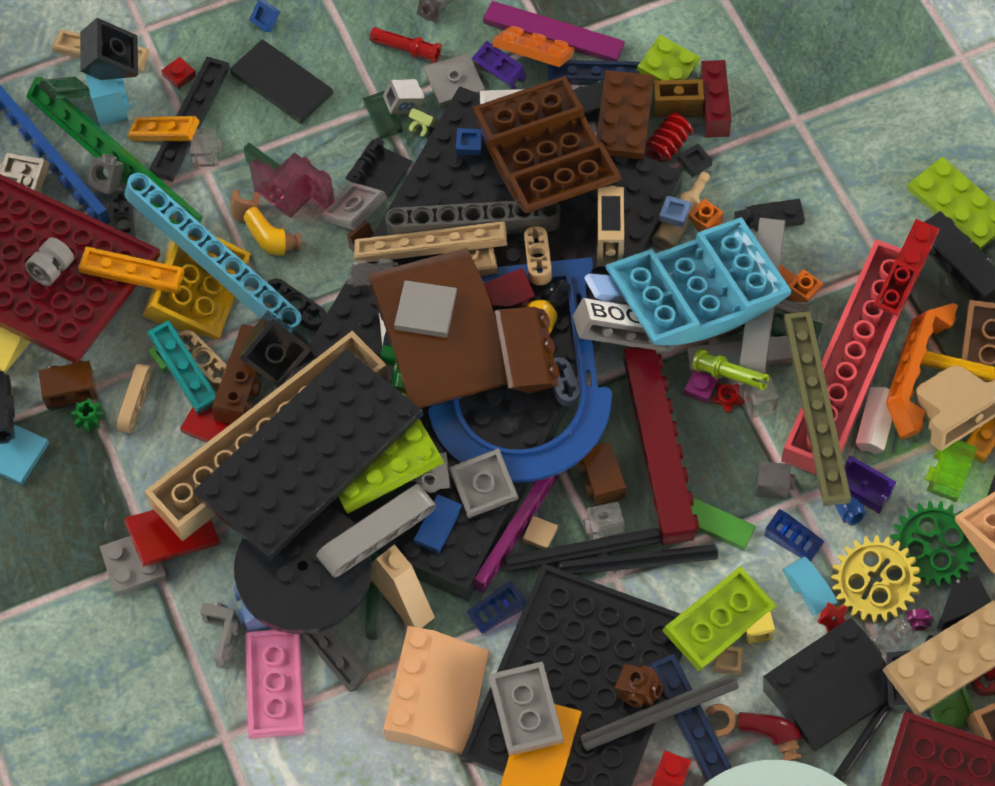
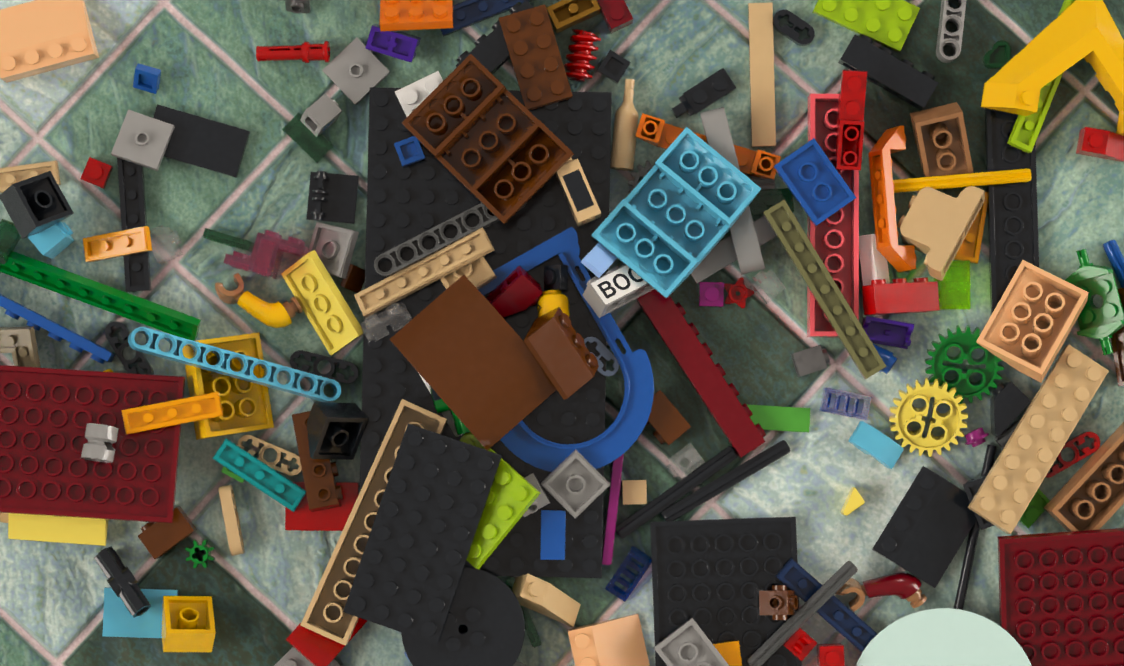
camera: 25 degrees left, 25 degrees up
(38, 470) = (187, 624): none -> yellow slope
(97, 179) = (90, 315): flat silver brick -> none
(233, 57) = (142, 140): none -> light grey plate
(322, 245) = (322, 302): none -> light yellow plate
(375, 530) = (511, 575): light grey beam -> none
(422, 119) = (349, 129): yellowish green tile -> none
(425, 309) = (462, 364): light grey tile -> none
(542, 262) = (525, 255): tan beam -> none
(645, 743) = (800, 644): none -> red tile
(675, 211) = (623, 140): medium blue plate -> none
(719, 618) = (816, 509): lime plate -> none
(720, 367) = (724, 279): lime pin -> none
(729, 661) = (834, 536): tan tile -> none
(829, 612) = (905, 465): red plate -> none
(835, 217) = (762, 74): none -> tan tile
(847, 310) = (814, 182): none -> blue plate
(885, 190) = (797, 23): none -> black beam
(892, 453) = (900, 296): none -> red brick
(893, 636) = (961, 465): clear brick -> none

